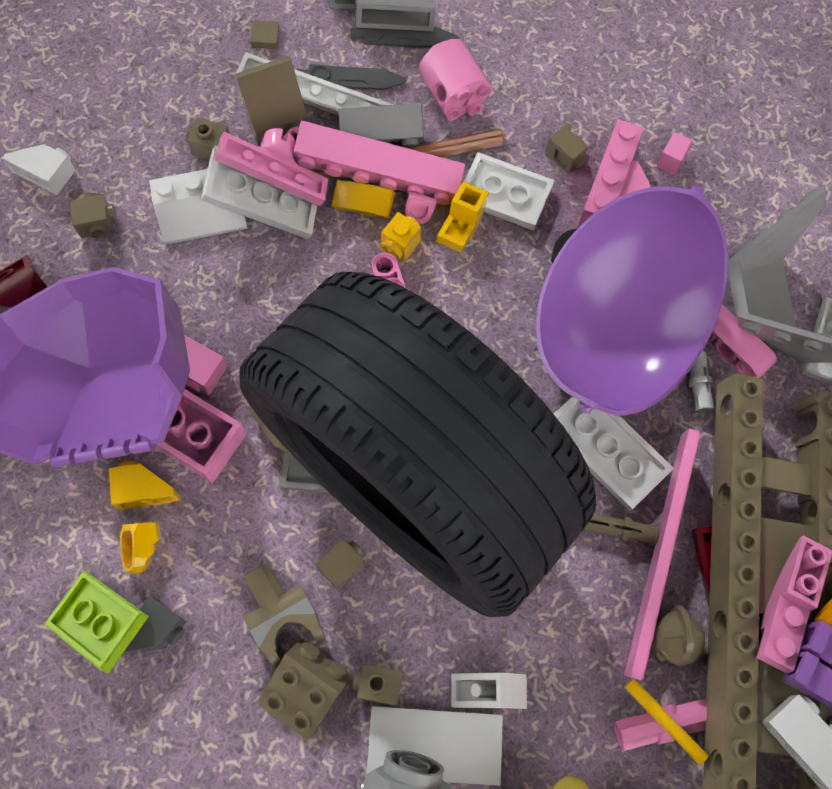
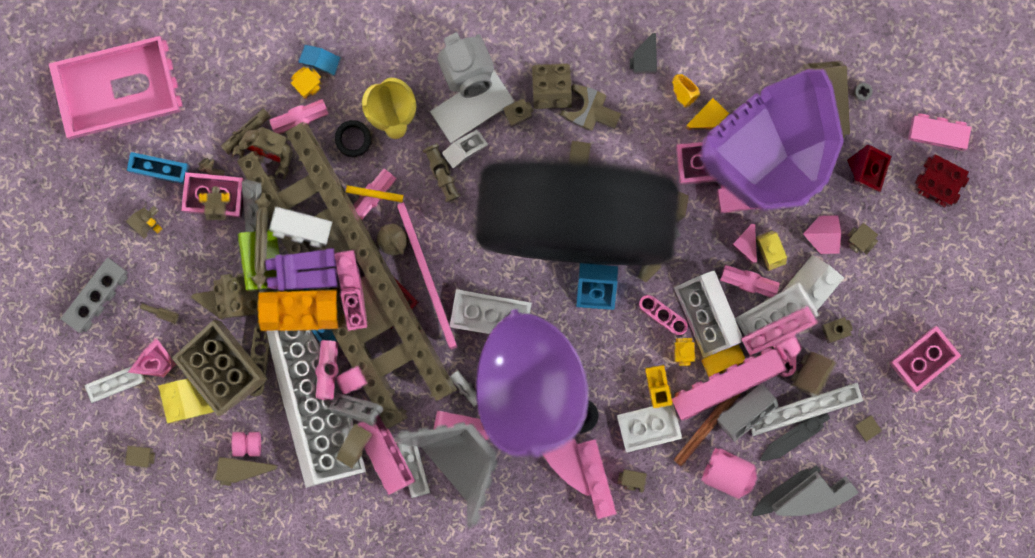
camera: 145 degrees right, 15 degrees up
(41, 166) = (915, 246): white slope -> none
(96, 621) = (673, 41): lime tile -> none
(126, 247) = (825, 234): none -> bright pink slope
(142, 48) = (925, 359): none -> bright pink brick
(205, 270) = (771, 250): none -> light yellow torso
(225, 303) = (747, 244): none -> bright pink slope
(260, 261) = (749, 281): none -> bright pink piece
(339, 242) = (708, 314): none -> white slope
(420, 207) = (688, 378): bright pink tile -> none
(545, 676) = (443, 176): none -> dark tan piece
(646, 534) = (461, 273): dark tan pin -> none
(674, 153) = (570, 523): bright pink slope -> none

